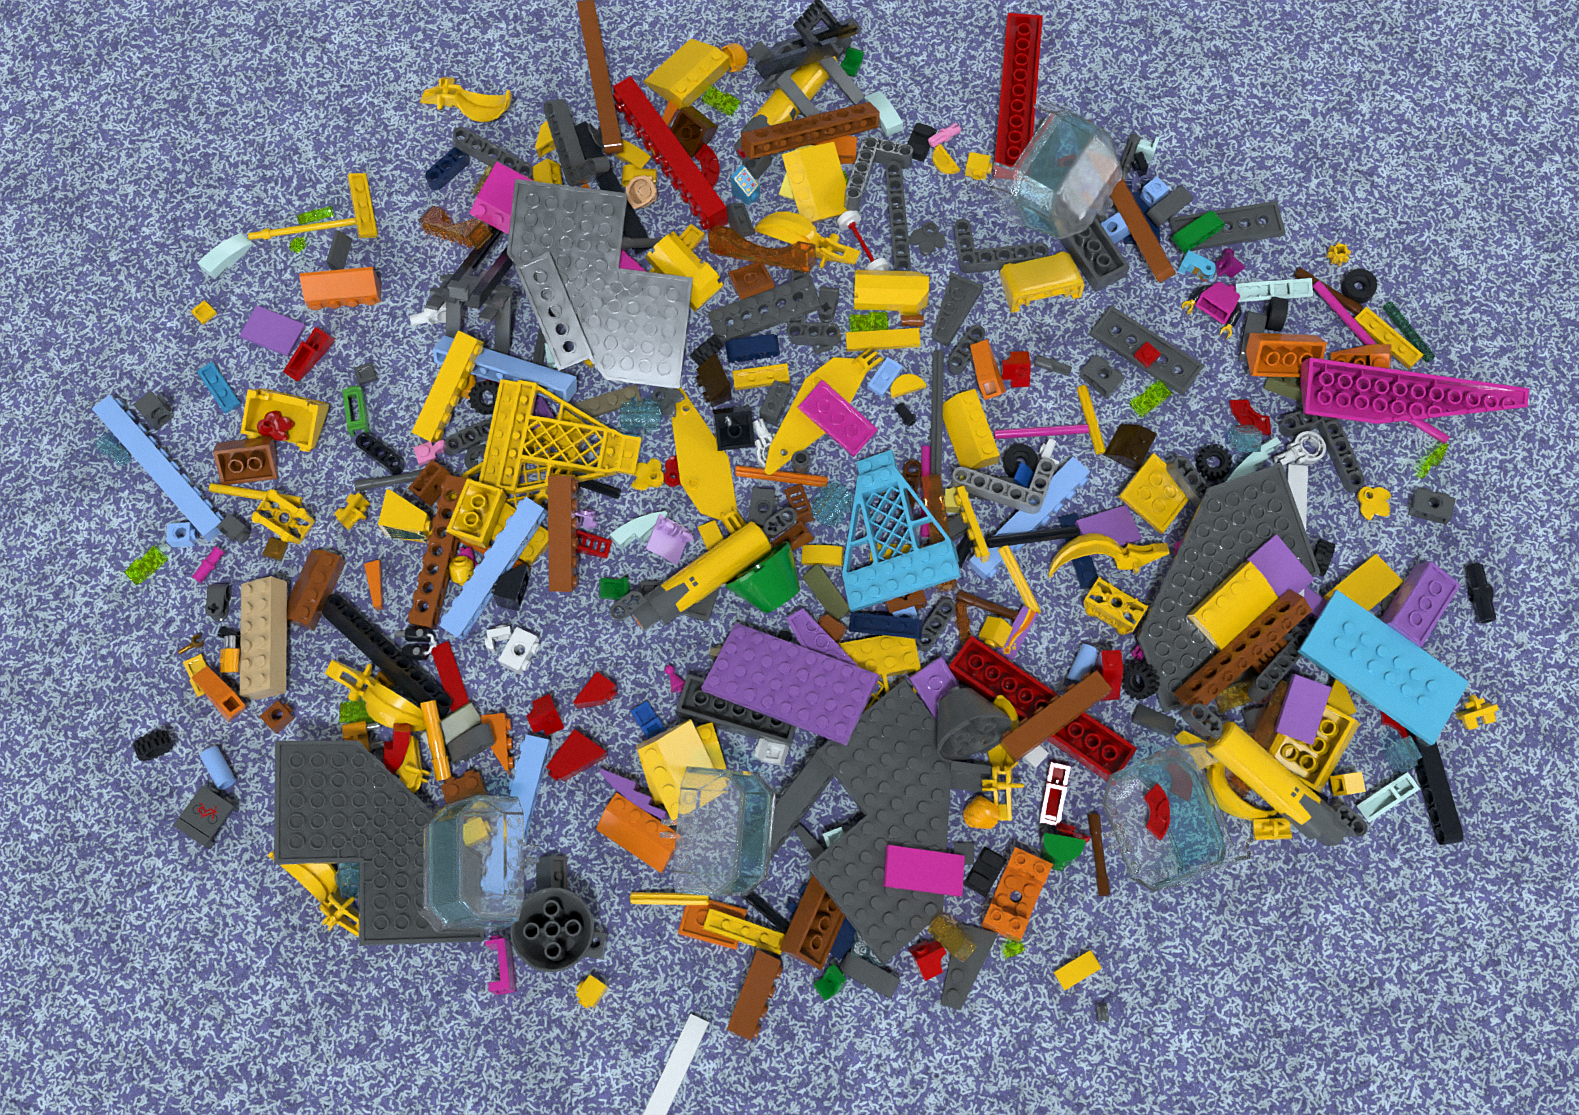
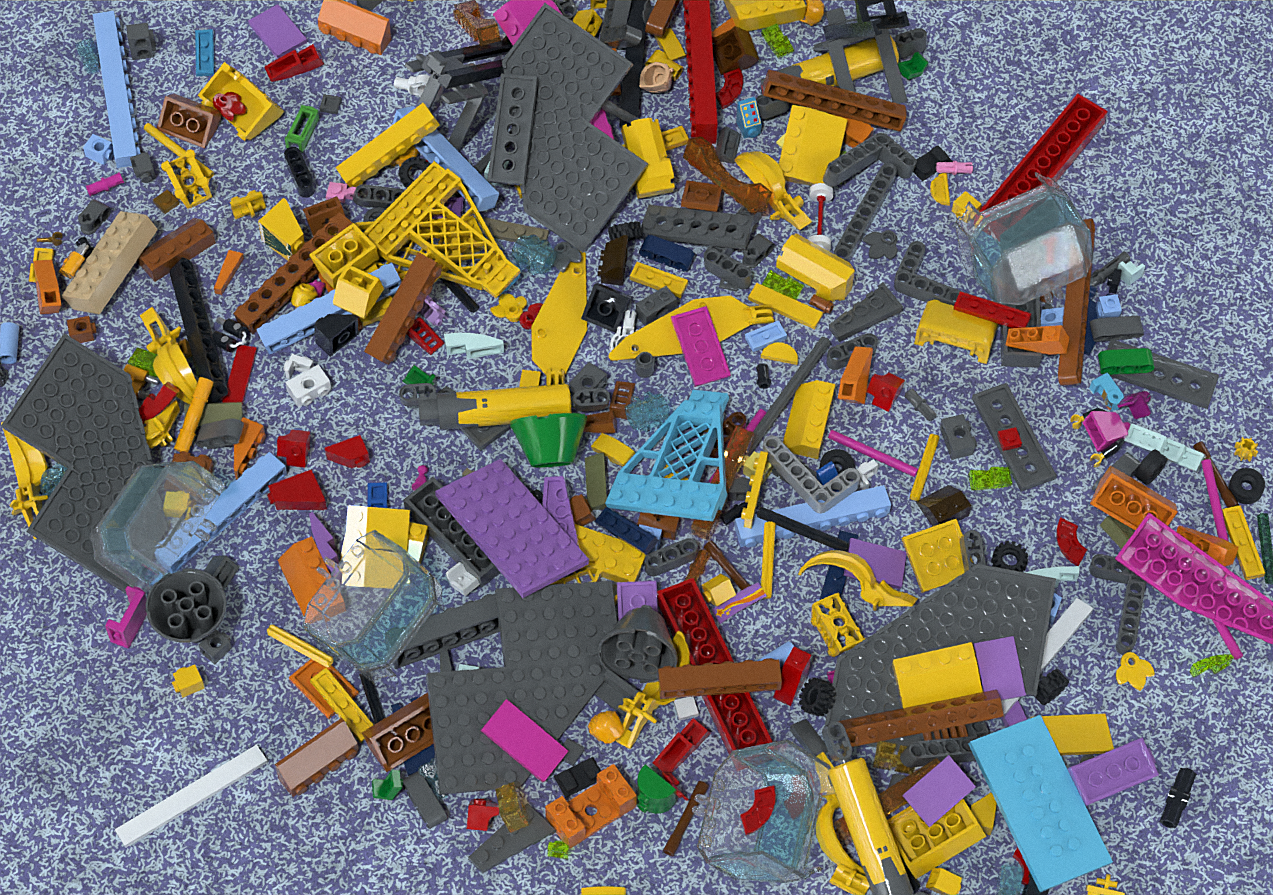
camera: 25 degrees right, 10 degrees down
(146, 566) = (53, 160): clear neon green slope -> none
(371, 483) = (276, 191): dark grey piece -> none
(513, 542) = (357, 291): none -> yellow slope
(668, 539) = (490, 365): lavender hinge -> none
(782, 476) = (621, 368): orange axle -> none
(888, 118) = (913, 124): light aqua slope -> none
(1064, 249) = (991, 311): none -> red tile
(1120, 253) = (1039, 339): none -> orange slope
(1245, 438) = (1048, 552): clear light blue piece -> none
(1298, 453) = (1090, 593): white pin -> none
(1420, 506) = (1186, 712): dark grey brick -> none

